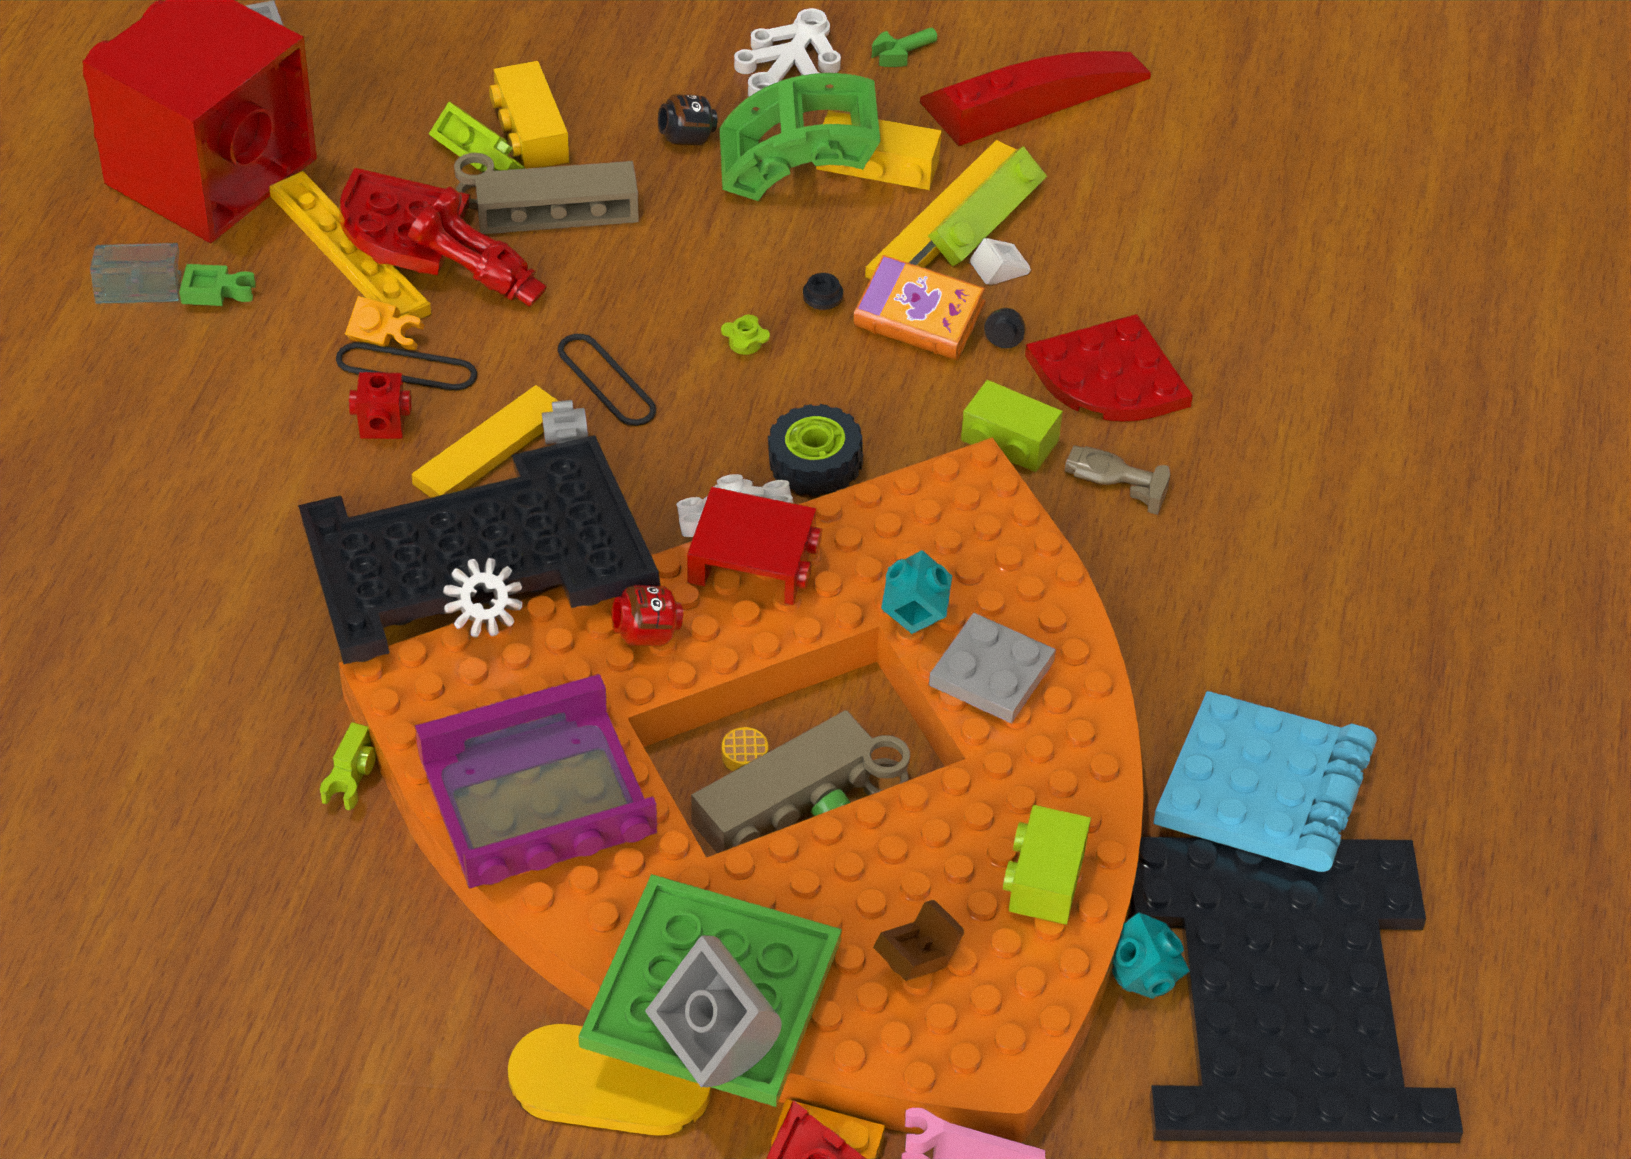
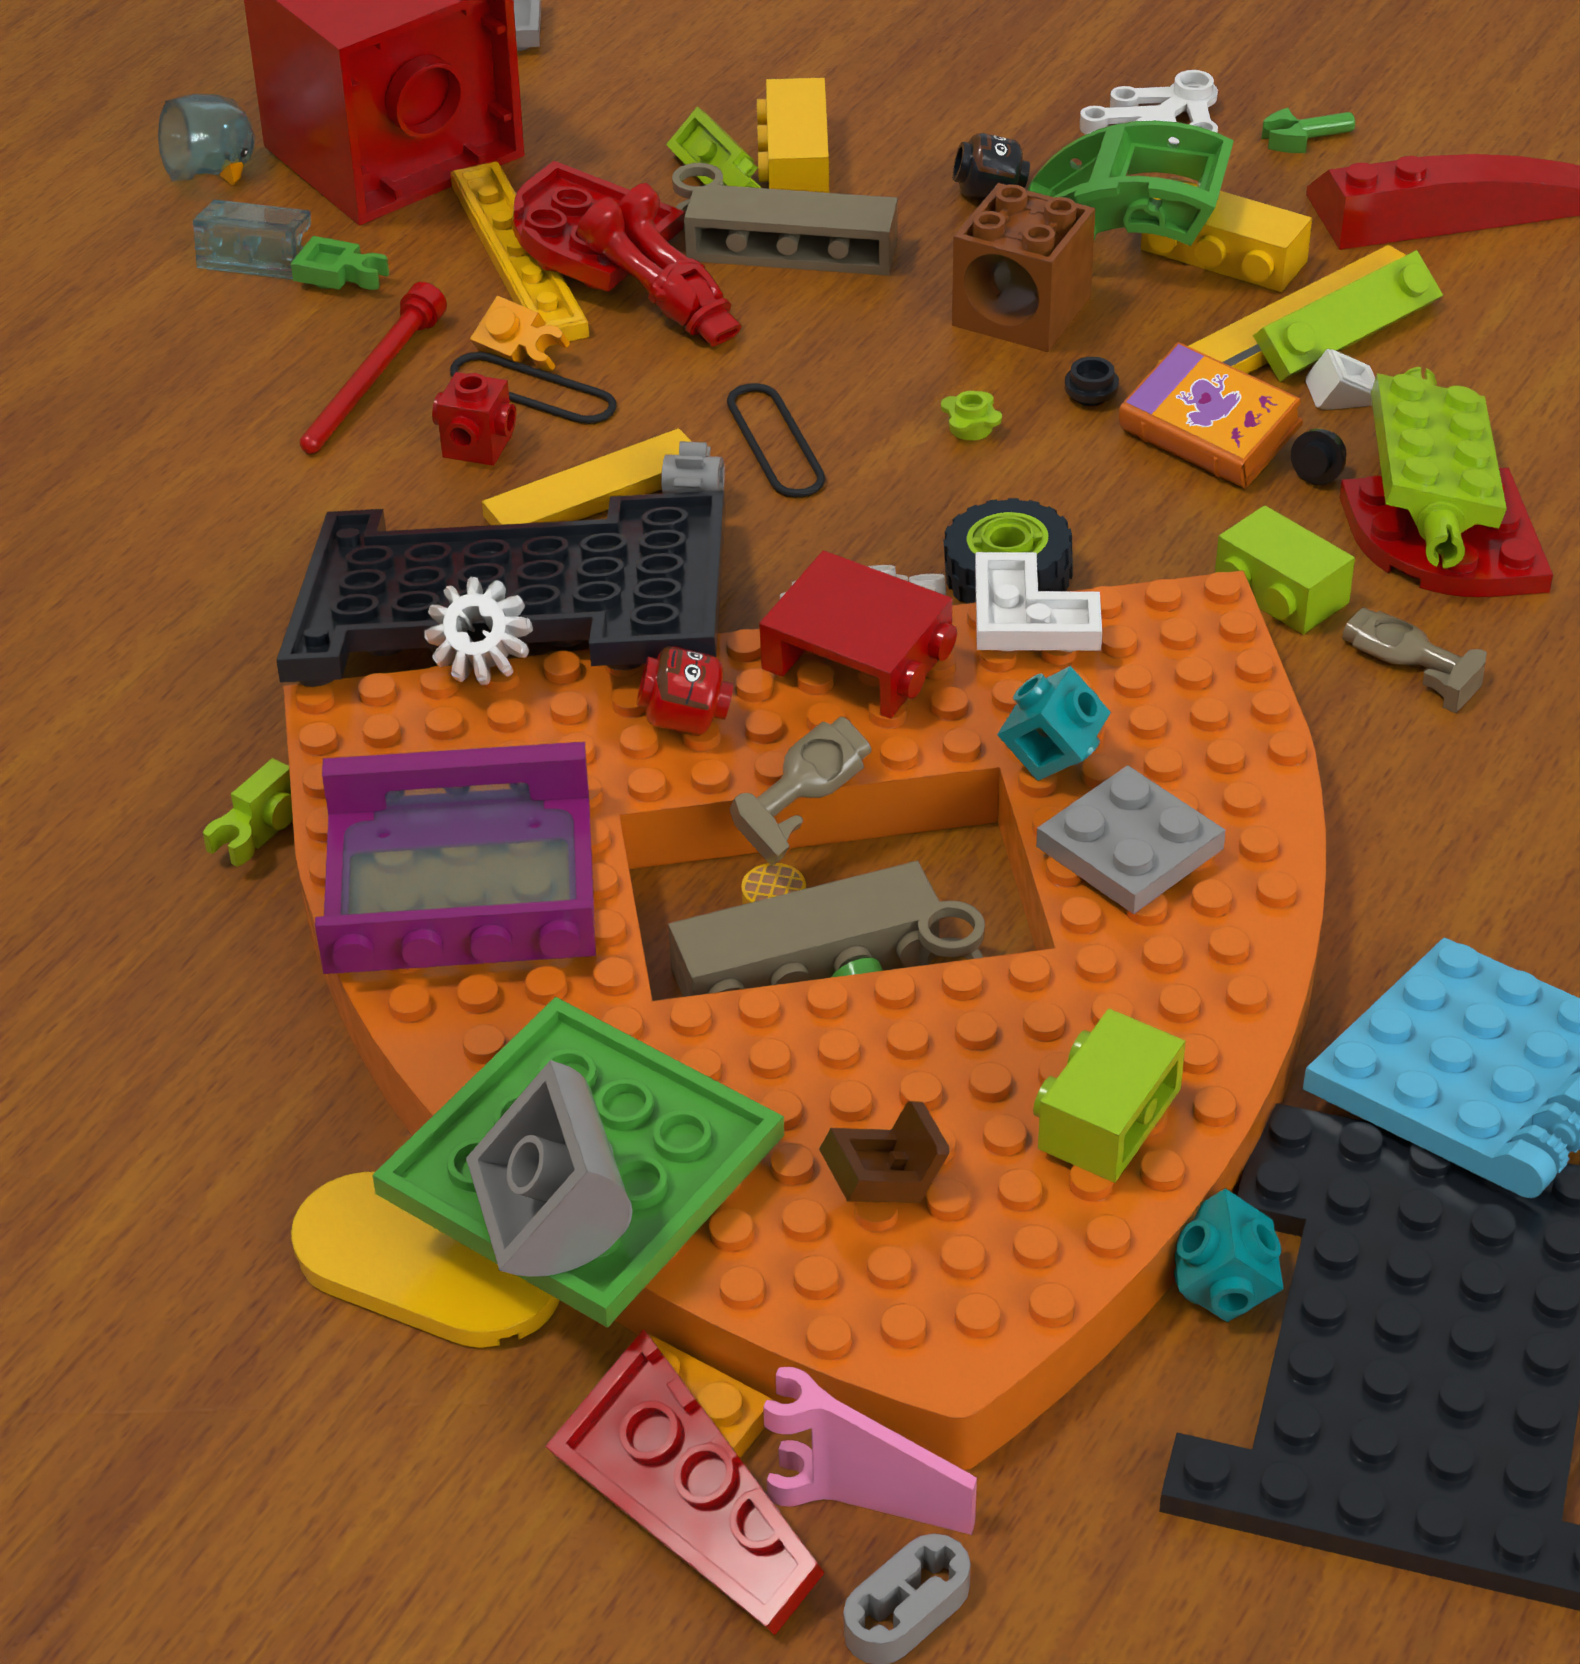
camera: 20 degrees right, 5 degrees down
(61, 187) = (204, 137): none -> clear light blue piece
(295, 315) = (419, 309): none -> red piece
(747, 207) = (1022, 266): none -> dark orange brick
(756, 658) = (810, 770): none -> dark tan piece
(863, 510) = (1019, 617): none -> white plate
(1092, 319) = (1437, 459): none -> lime plate

